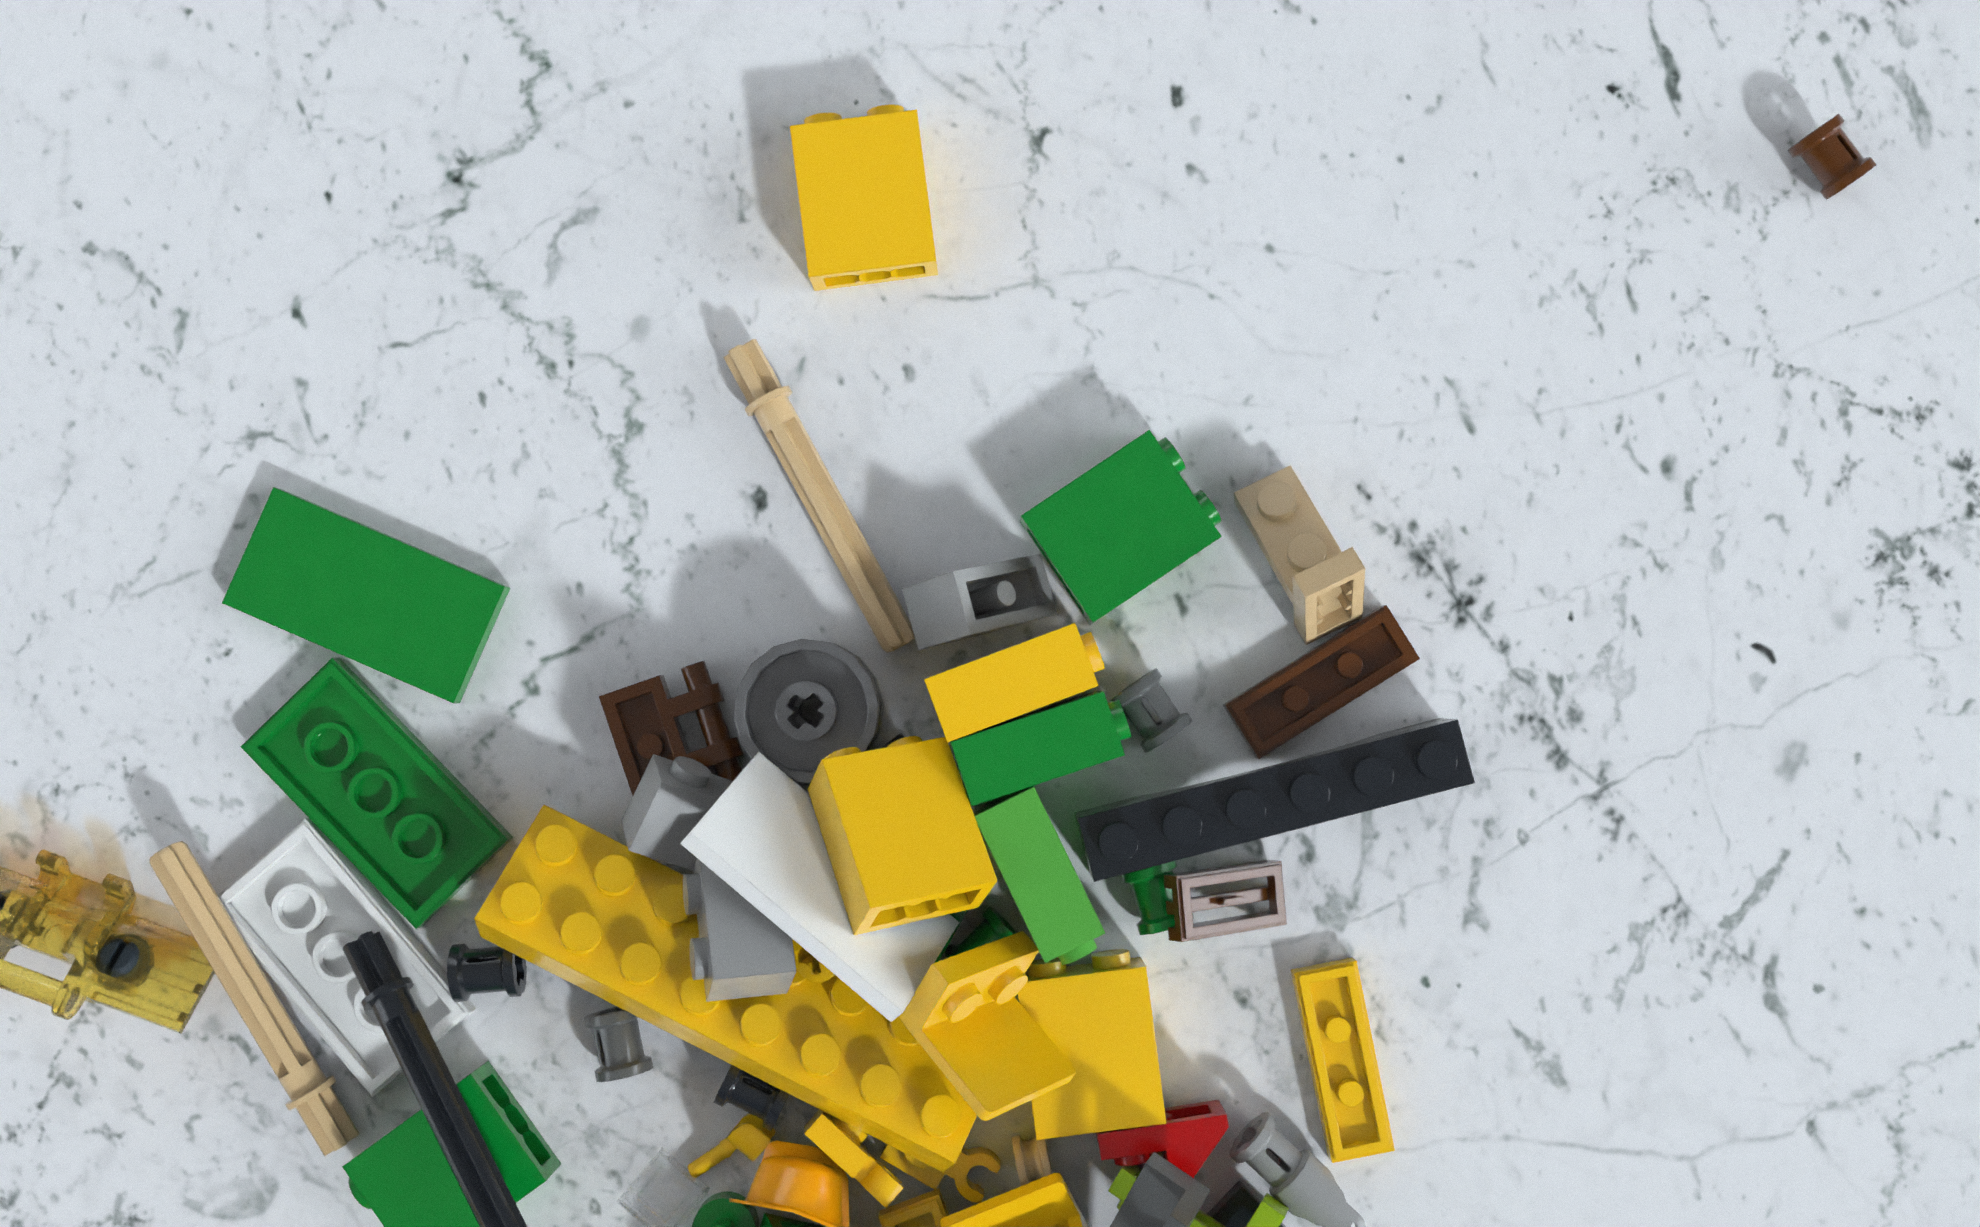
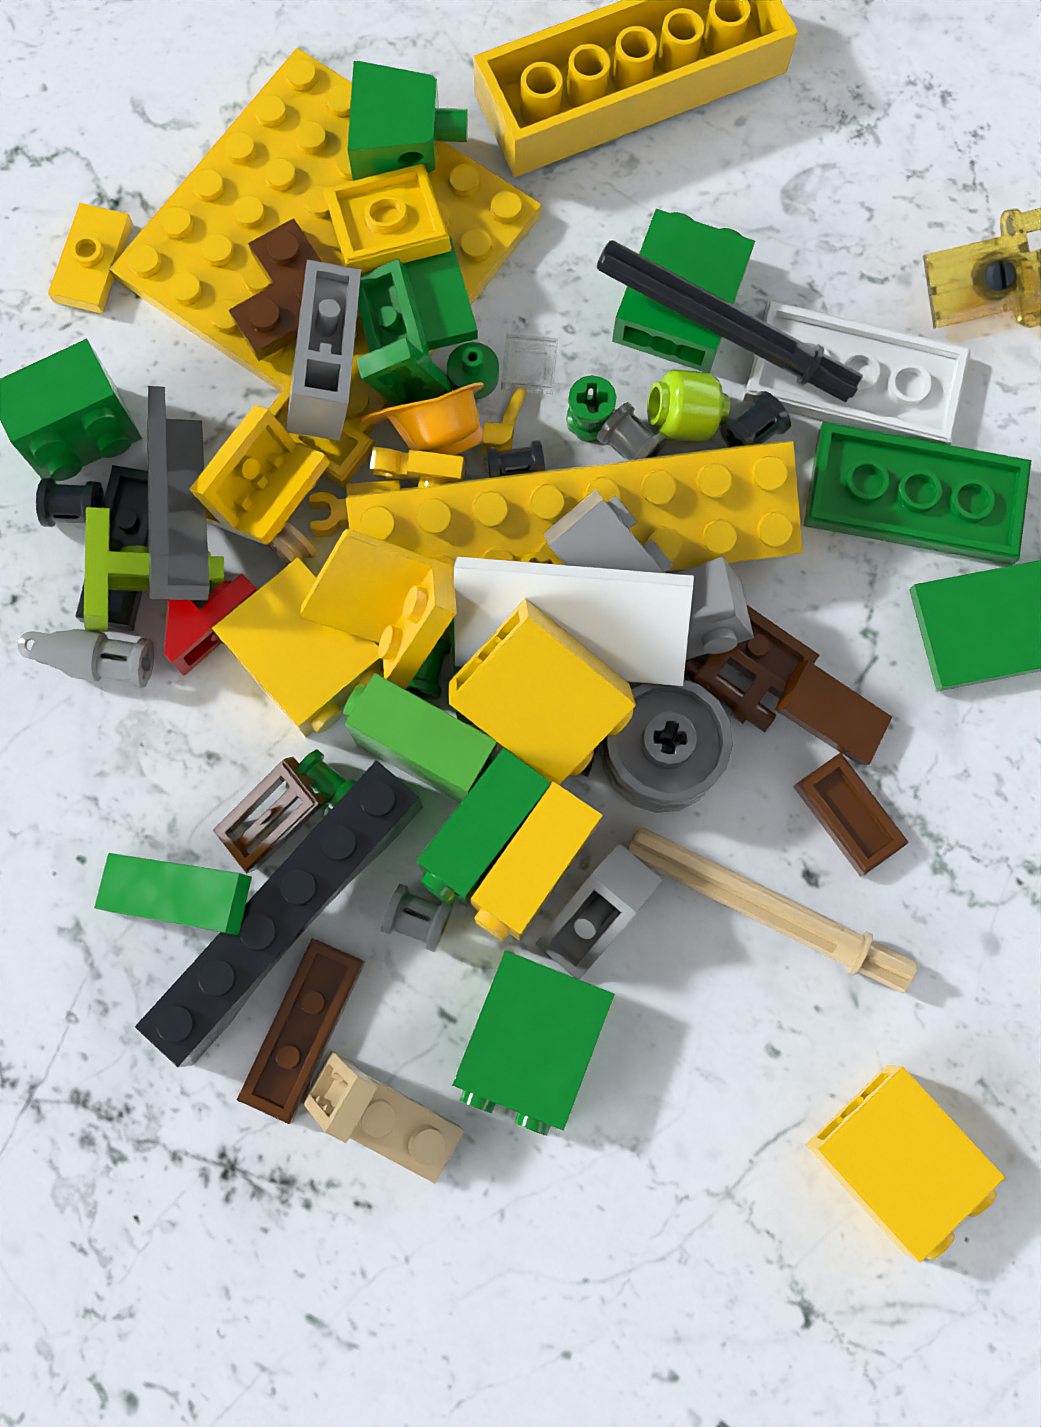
camera: 140 degrees right, 10 degrees down
(254, 997) = (895, 309): tan axle -> none
(539, 1037) = (687, 405): none -> lime head
(620, 1096) = (604, 404): none -> green bush
(627, 633) = (833, 712): none -> reddish brown tile
(680, 530) = (850, 814): none -> reddish brown tile
(1342, 1060) = (110, 762): yellow tile -> none
(1363, 884) = (173, 893): none -> tile

